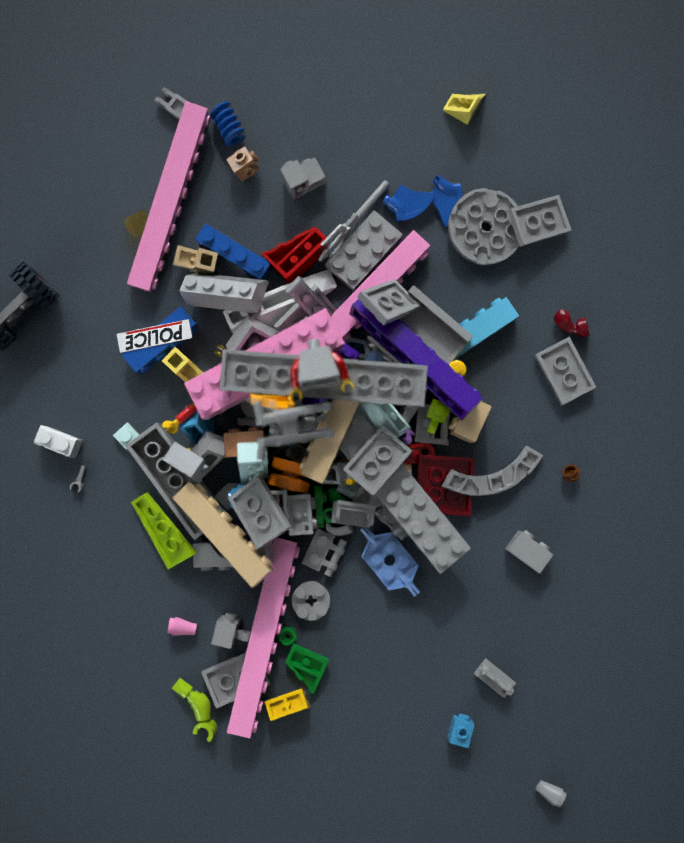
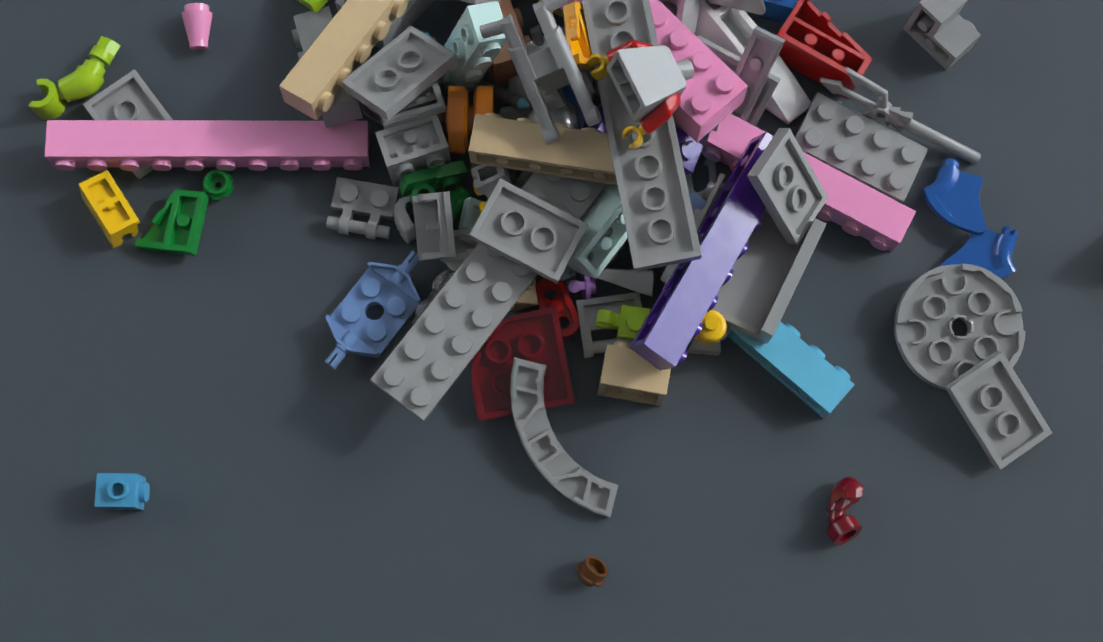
camera: 70 degrees right, 10 degrees down
(228, 631) = (205, 87): light grey brick -> none
(304, 609) = (284, 189): light grey plate -> none
(495, 678) = (219, 530): light grey hinge -> none
(529, 551) = (444, 531): light grey brick -> none
(565, 371) = (761, 518): light grey plate -> none

